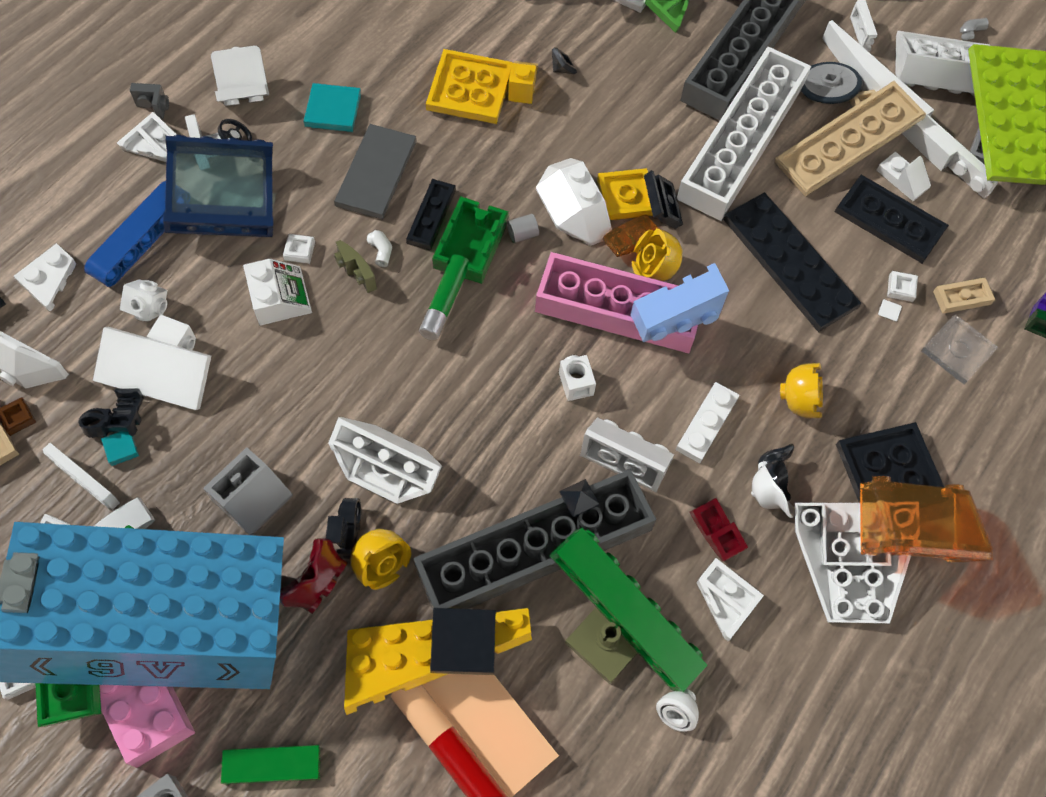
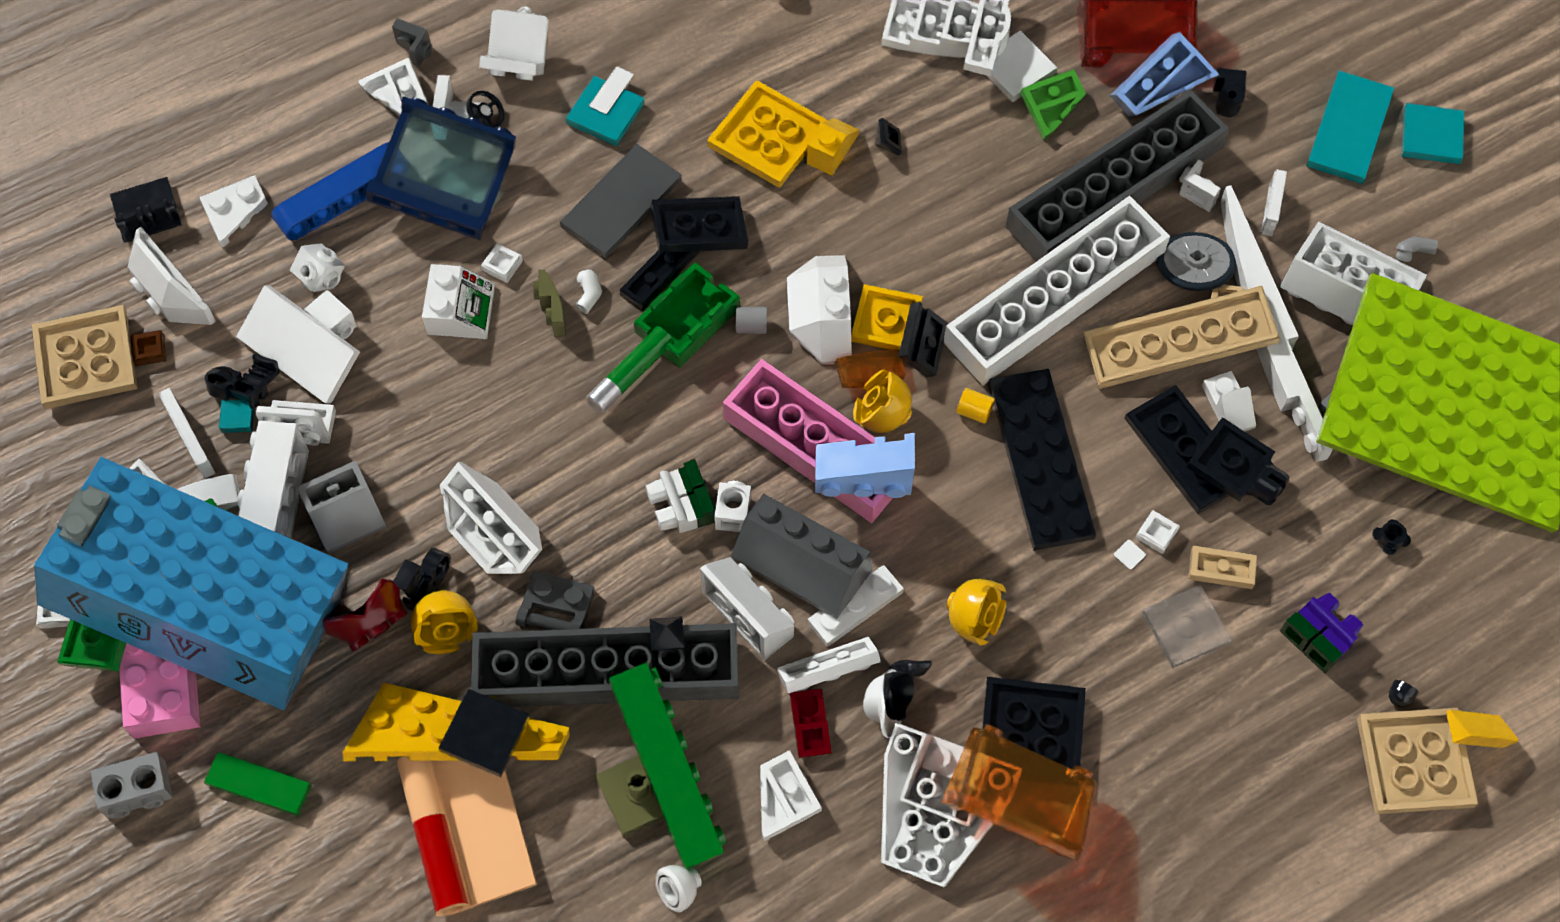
camera: 25 degrees right, 0 degrees up
(177, 485) = (273, 476): none -> white brick
(178, 433) = (312, 419): none -> white bracket
(331, 89) = (611, 90): none -> white sticker
(448, 168) = (699, 224): none -> black plate
(463, 501) = (556, 596): none -> dark grey plate
(536, 384) = (687, 499): none -> white hips
(652, 396) = (801, 556): none -> dark grey slope
(712, 476) = (828, 665): none -> white plate
(725, 237) = (975, 405): none -> yellow beam
(806, 31) = (1198, 189): none -> white bracket
(940, 215) = (1238, 464): none -> black plate

